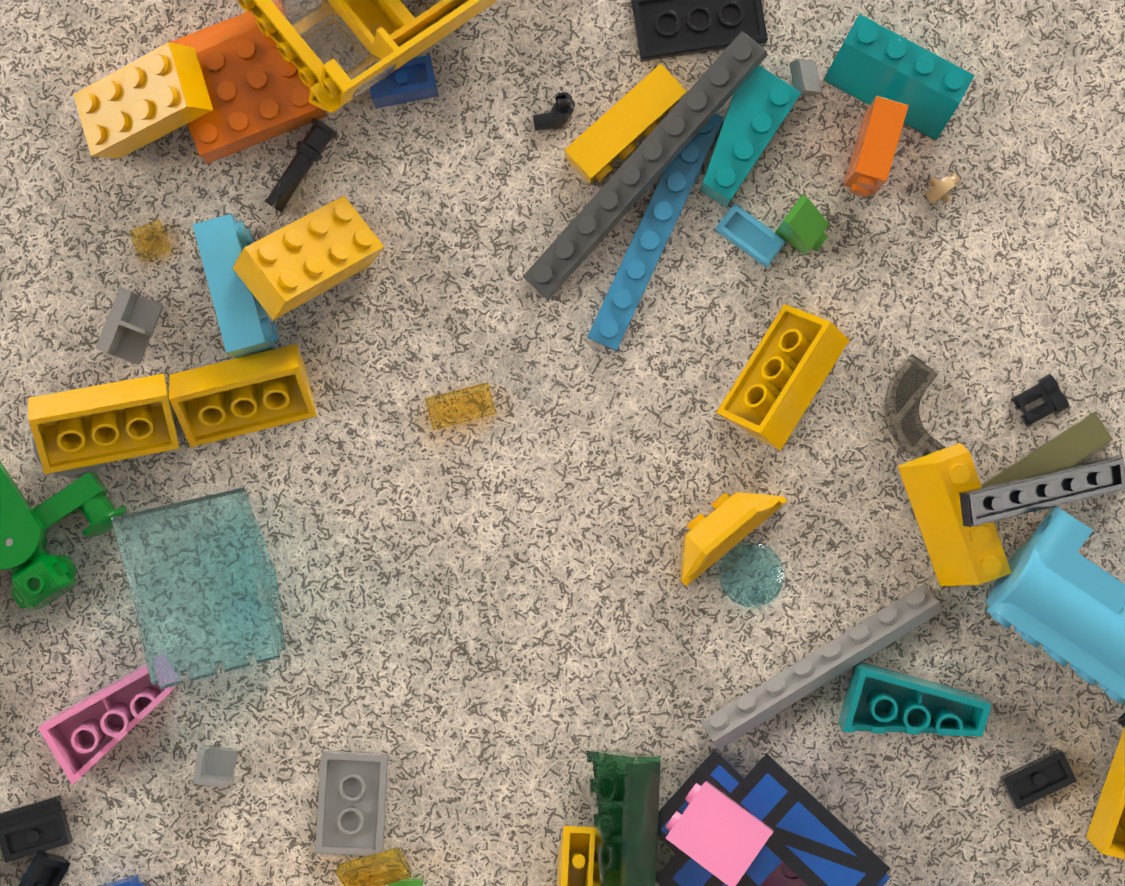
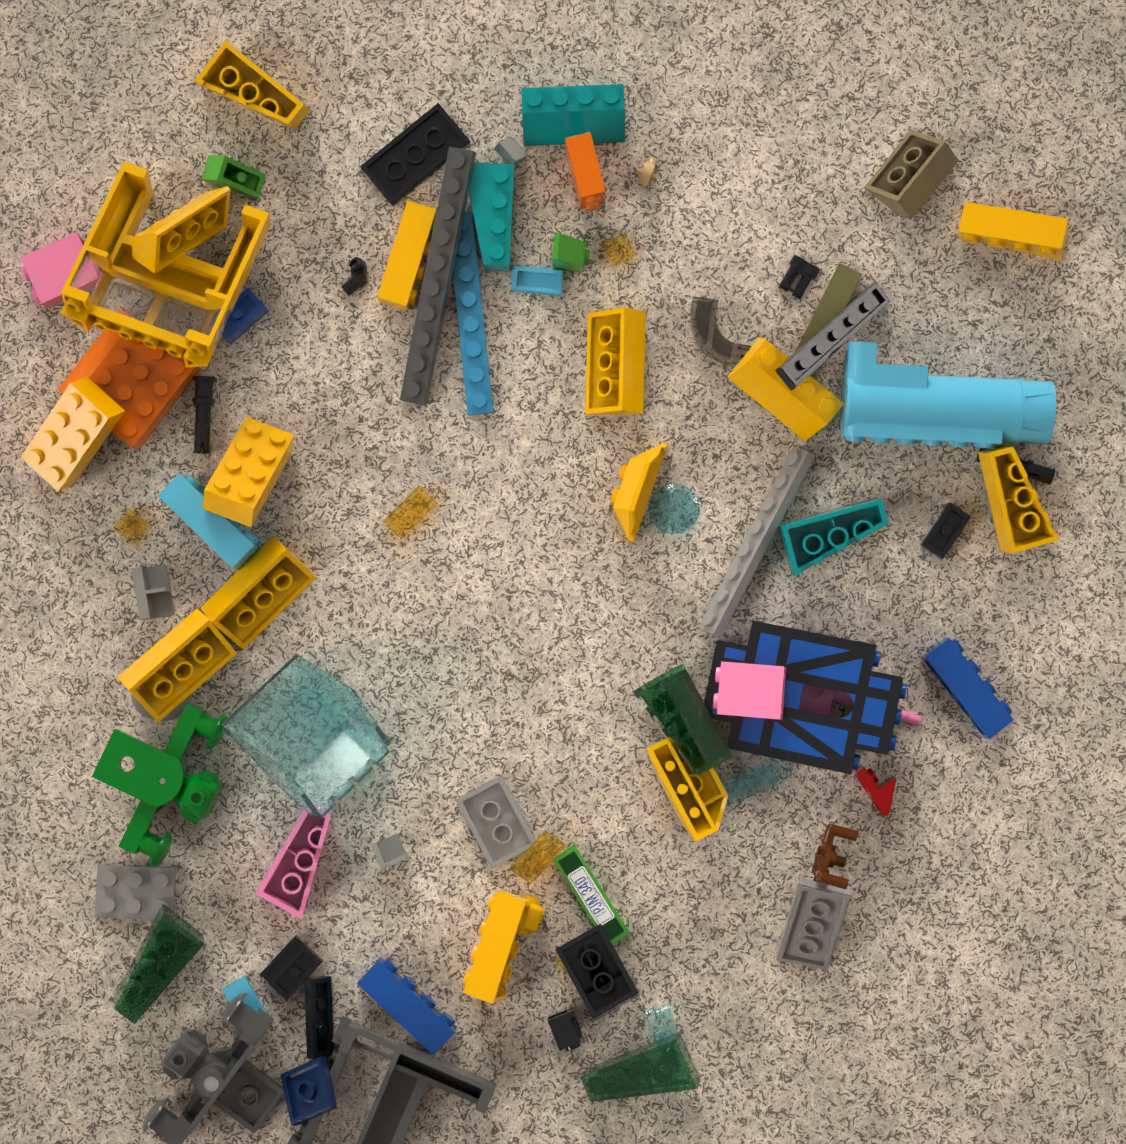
camera: 25 degrees left, 0 degrees up
(860, 254) = (619, 249): none -> clear yellow tile

